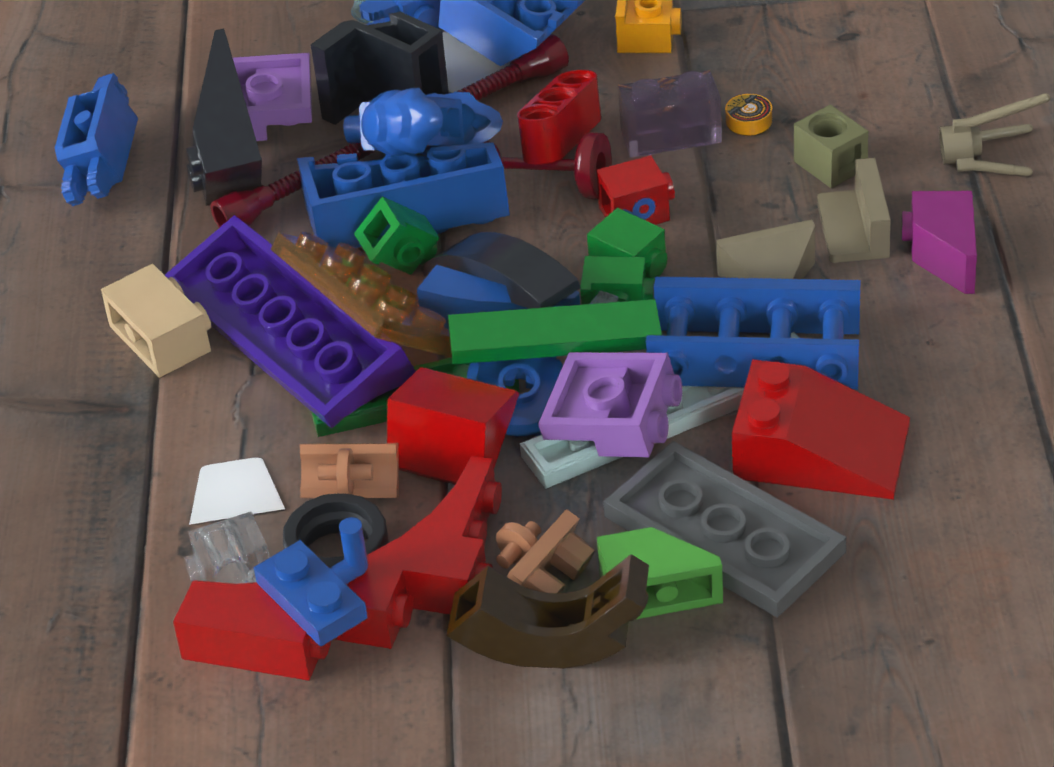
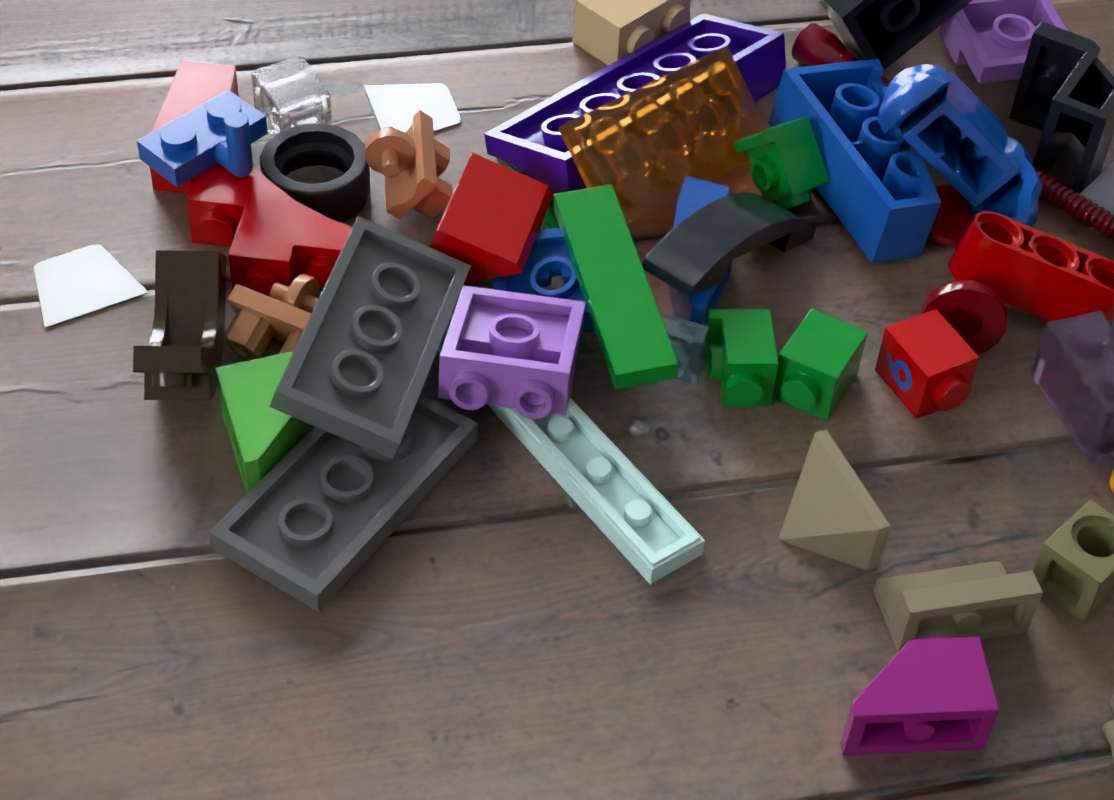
camera: 75 degrees right, 5 degrees up
(436, 726) = (82, 284): none -> white sticker
(593, 477) = (371, 338): none -> dark grey plate
(757, 307) = (728, 466): blue fence -> none
(816, 433) = (509, 568): red slope -> none

